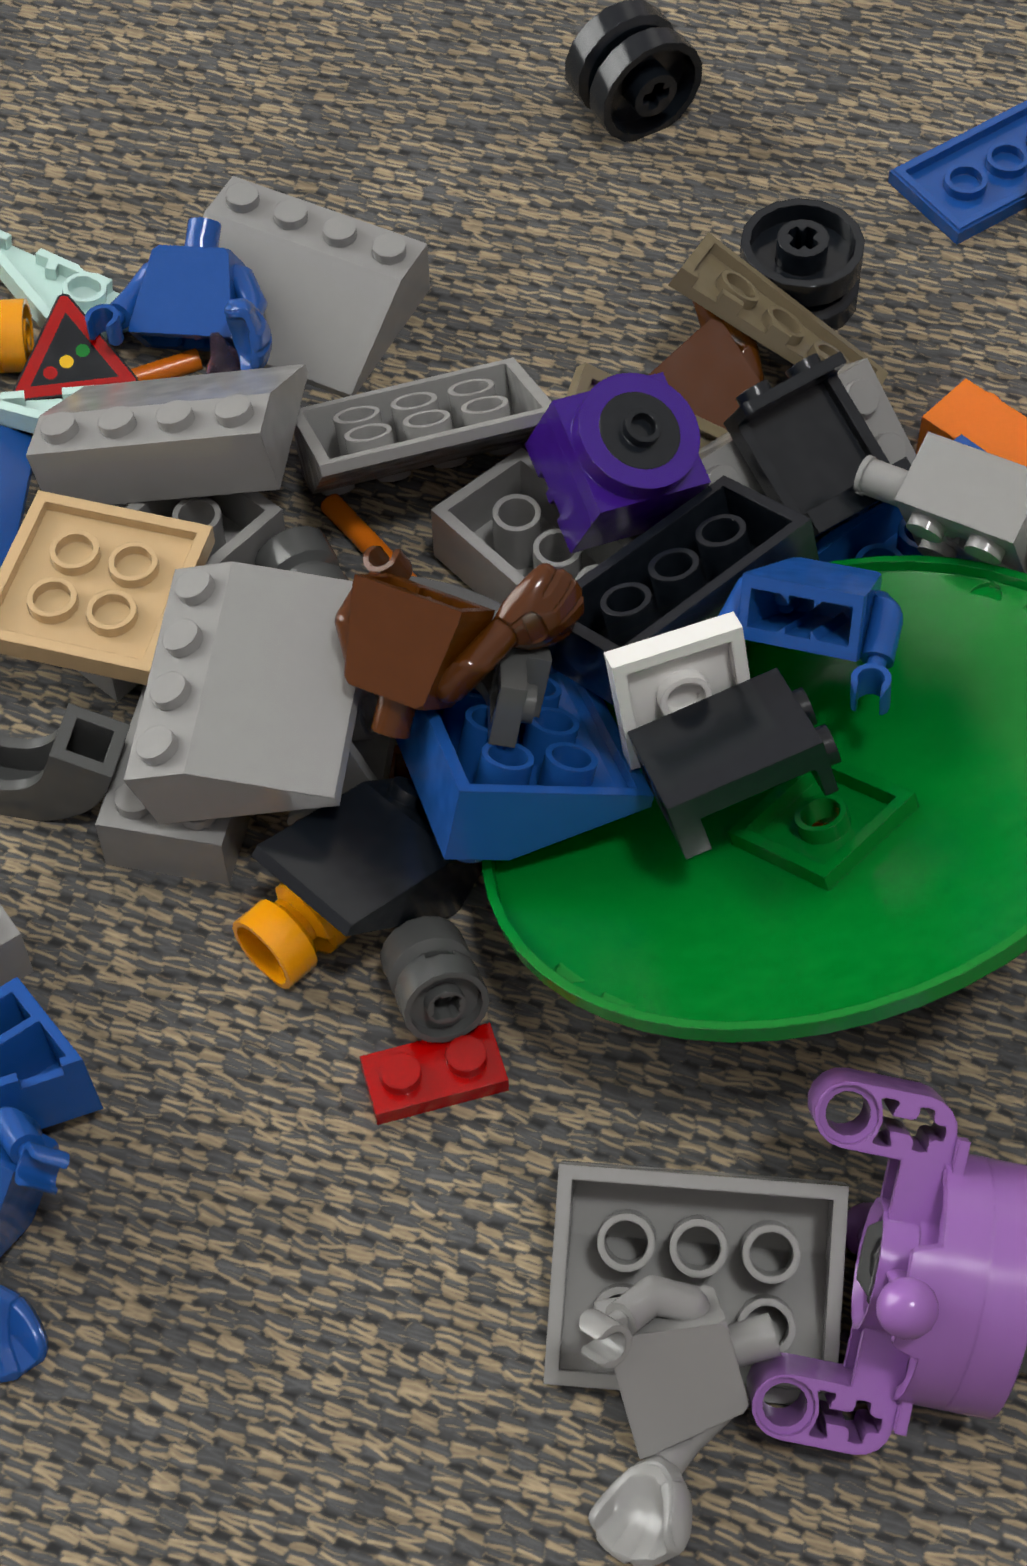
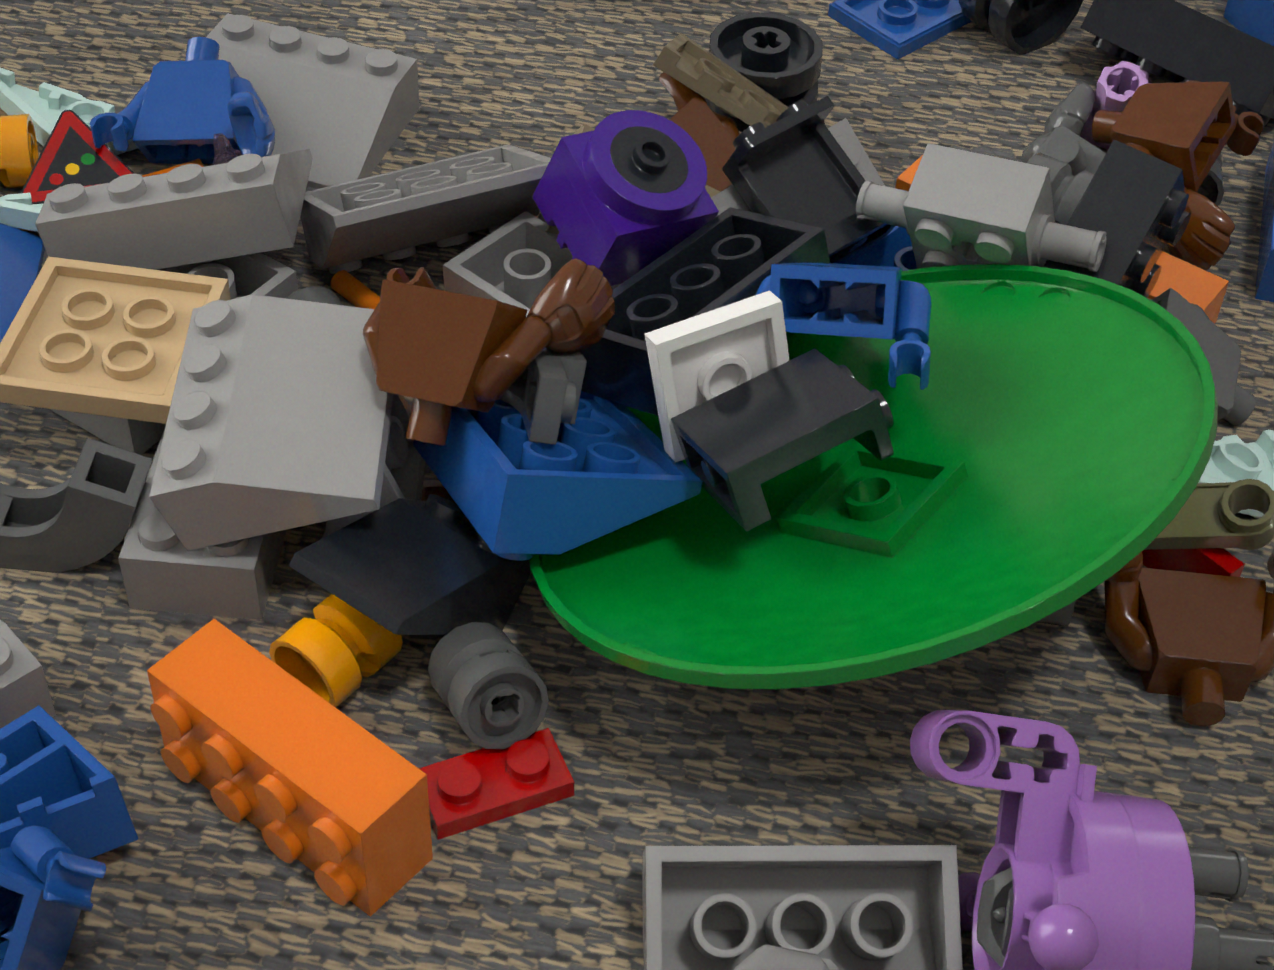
camera: 10 degrees left, 10 degrees down
(243, 1053) = (292, 767): none -> orange brick

